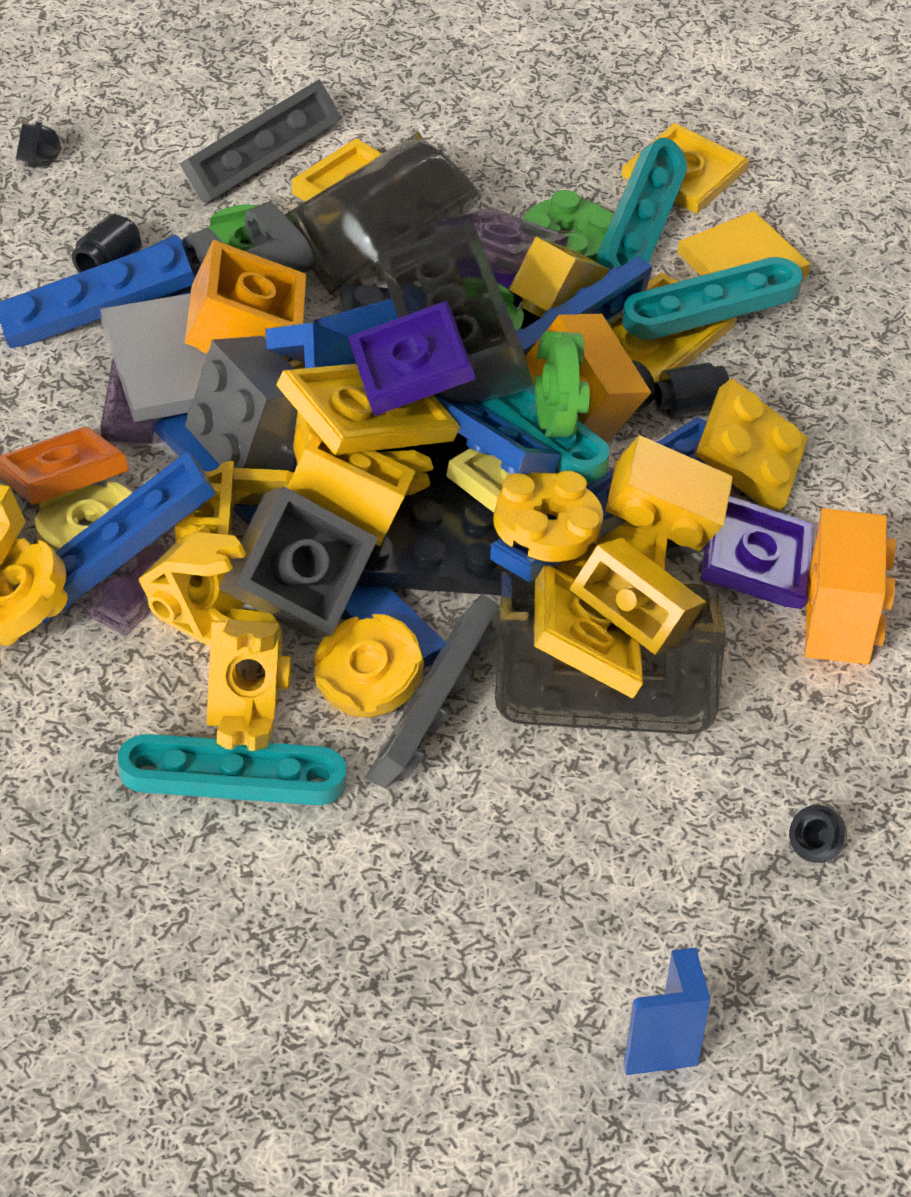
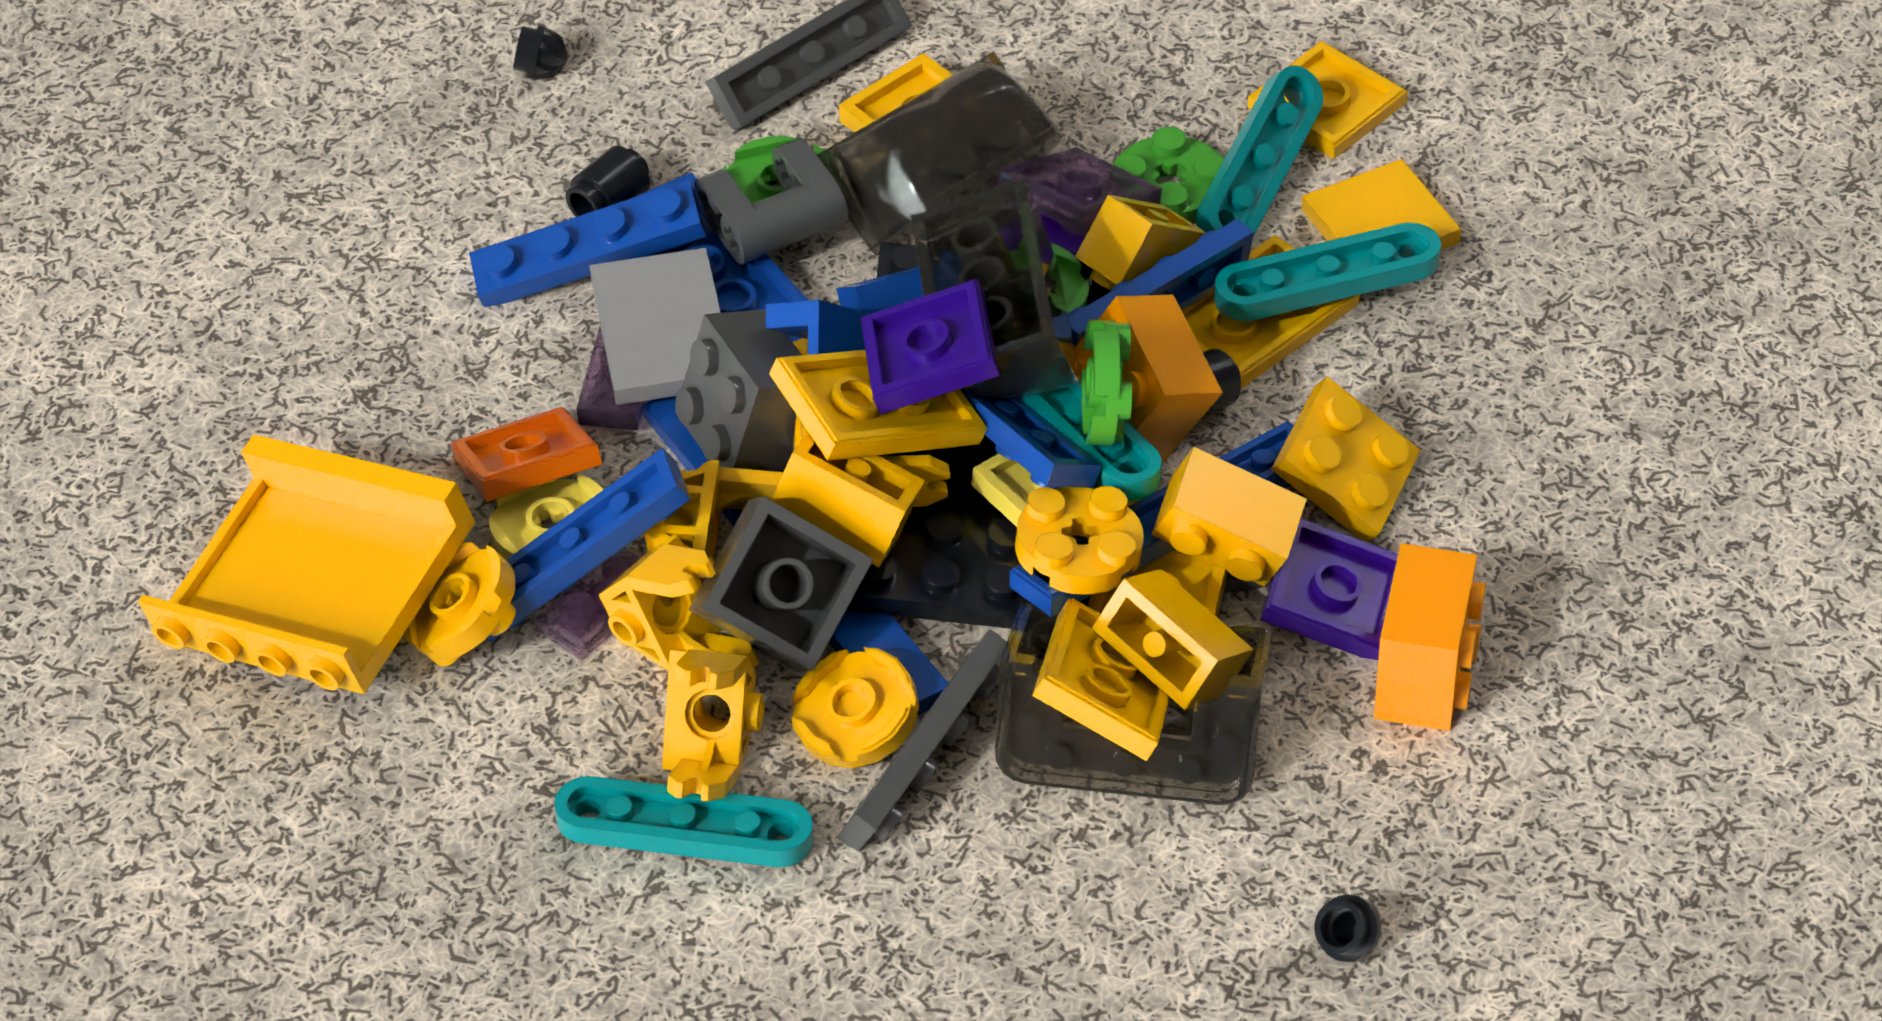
camera: 10 degrees right, 0 degrees up
(241, 297) = (753, 259): light orange brick -> none
(689, 389) = (1281, 385): black brick -> none

